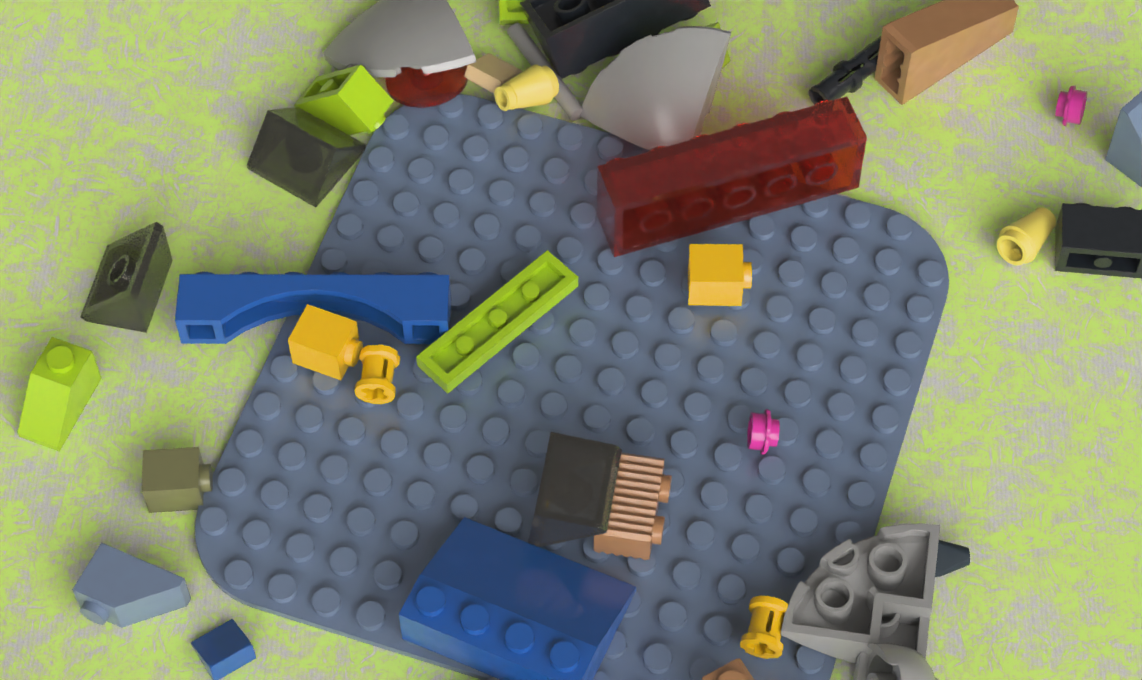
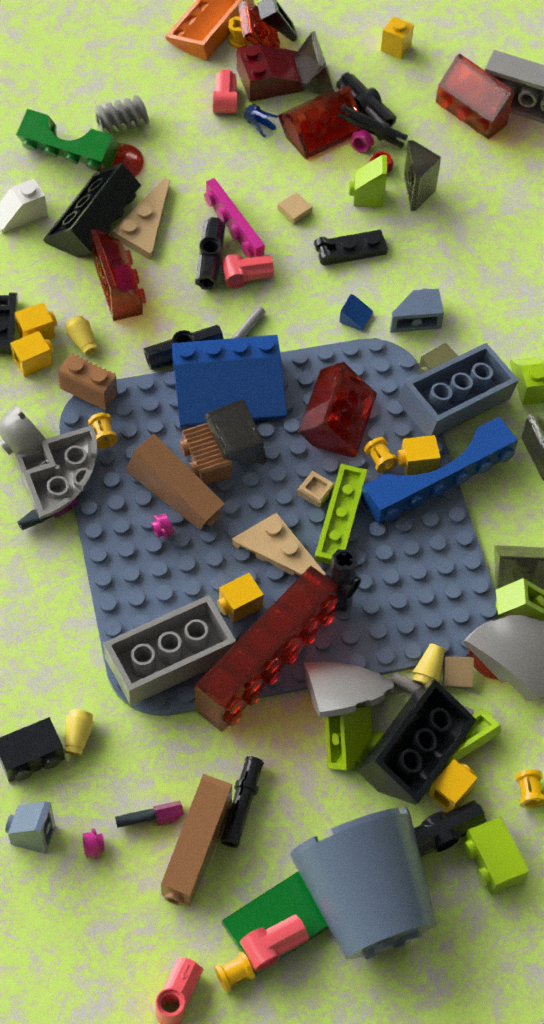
camera: 145 degrees right, 0 degrees up
(191, 398) = (457, 390): none -> sand blue brick
(391, 471) = (338, 411): none -> clear red slope
(503, 383) = (315, 489): none -> tan tile
(579, 188) = (343, 573): none -> black piece
(614, 330) = (277, 544): none -> tan wing
(713, 477) = (174, 483): none -> medium nougat slope
(858, 243) = (168, 649): none -> light grey brick
(985, 105) = (163, 814): none -> piece

